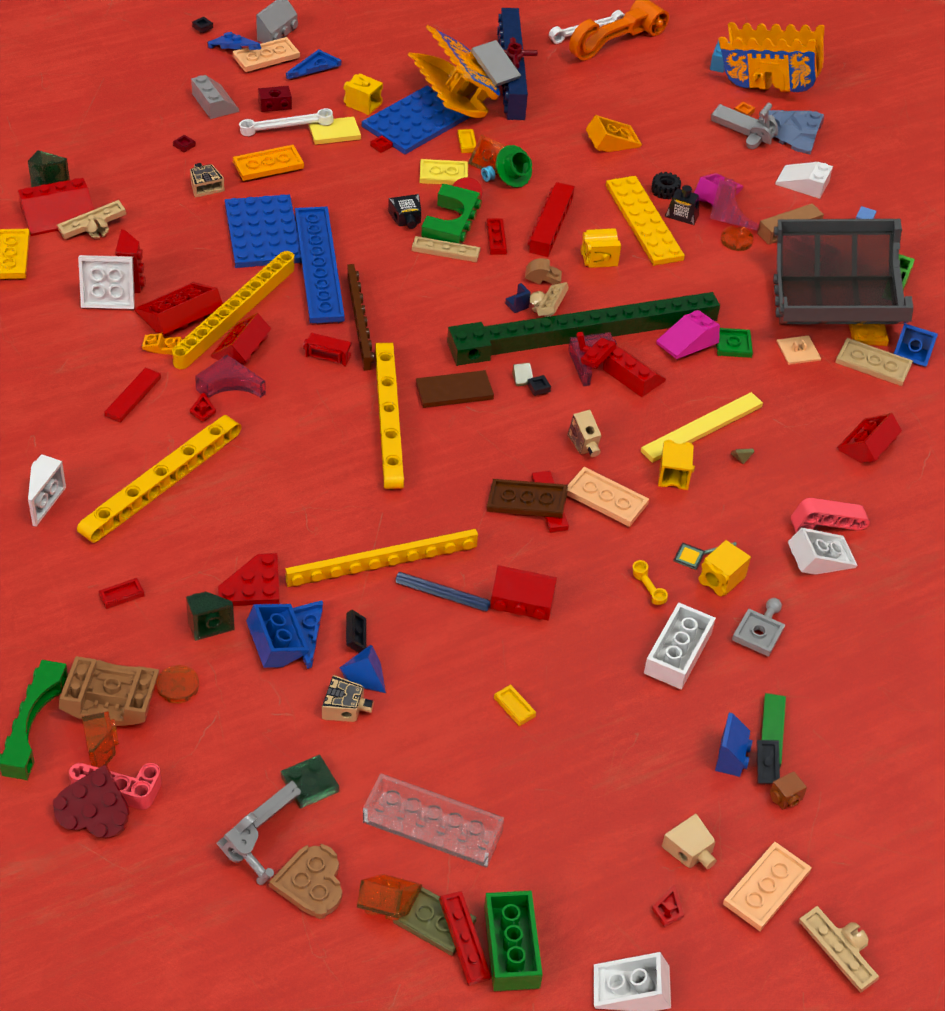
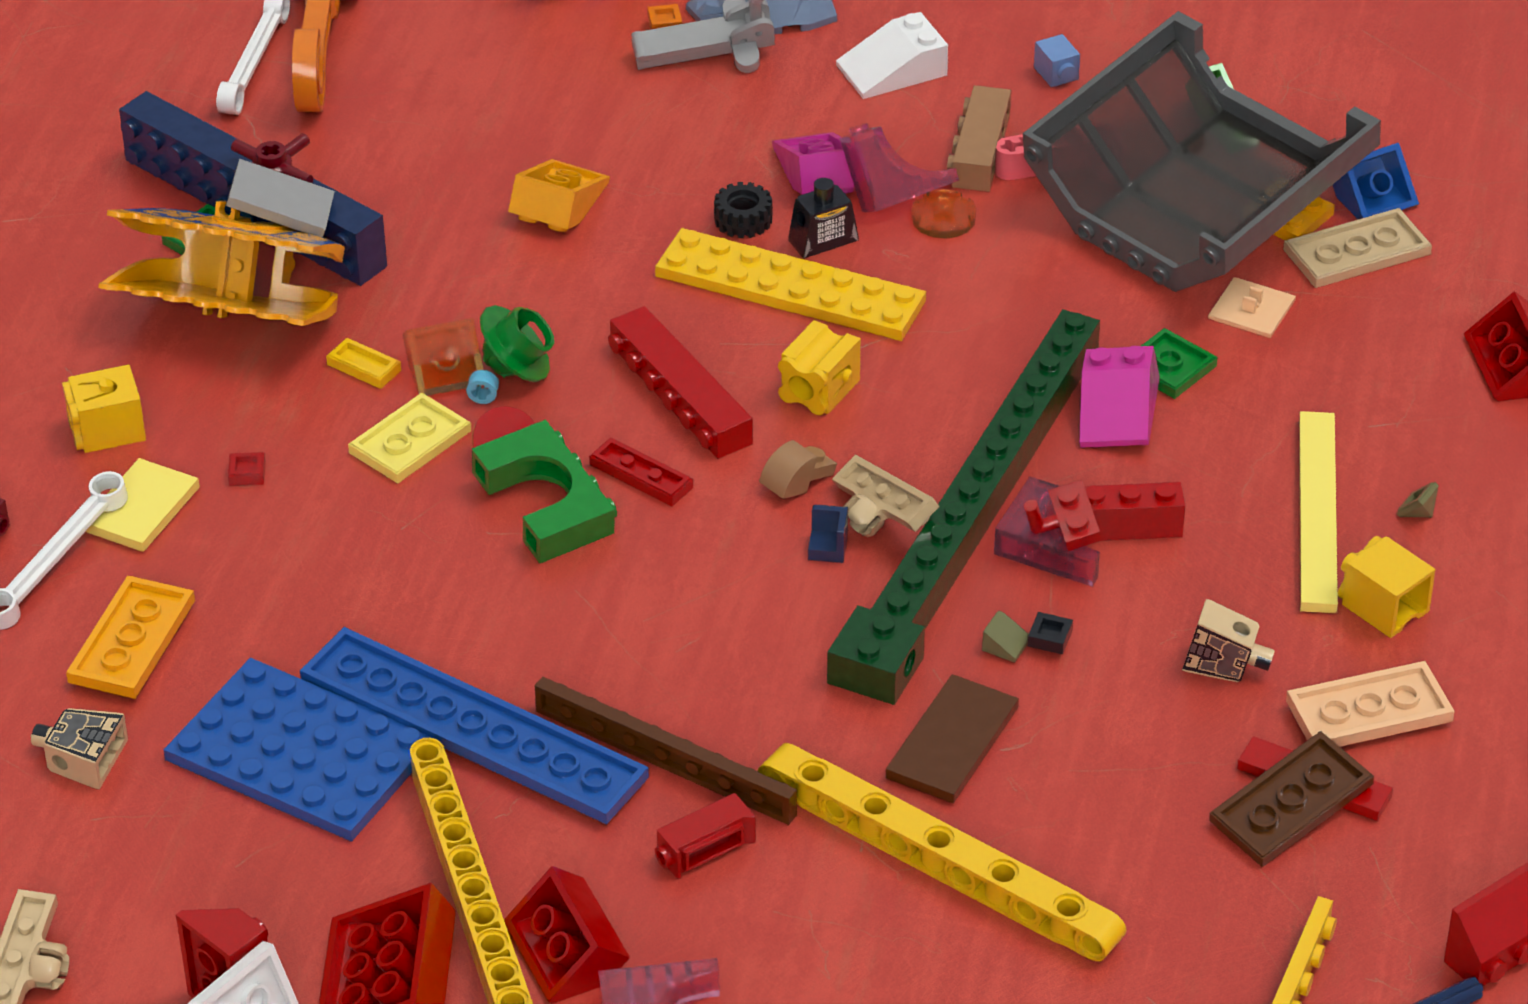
camera: 45 degrees left, 5 degrees down
(405, 210) = (465, 538): black torso -> none
(413, 120) = (233, 390): blue plate -> none
(446, 249) = (604, 549): tan tile -> none

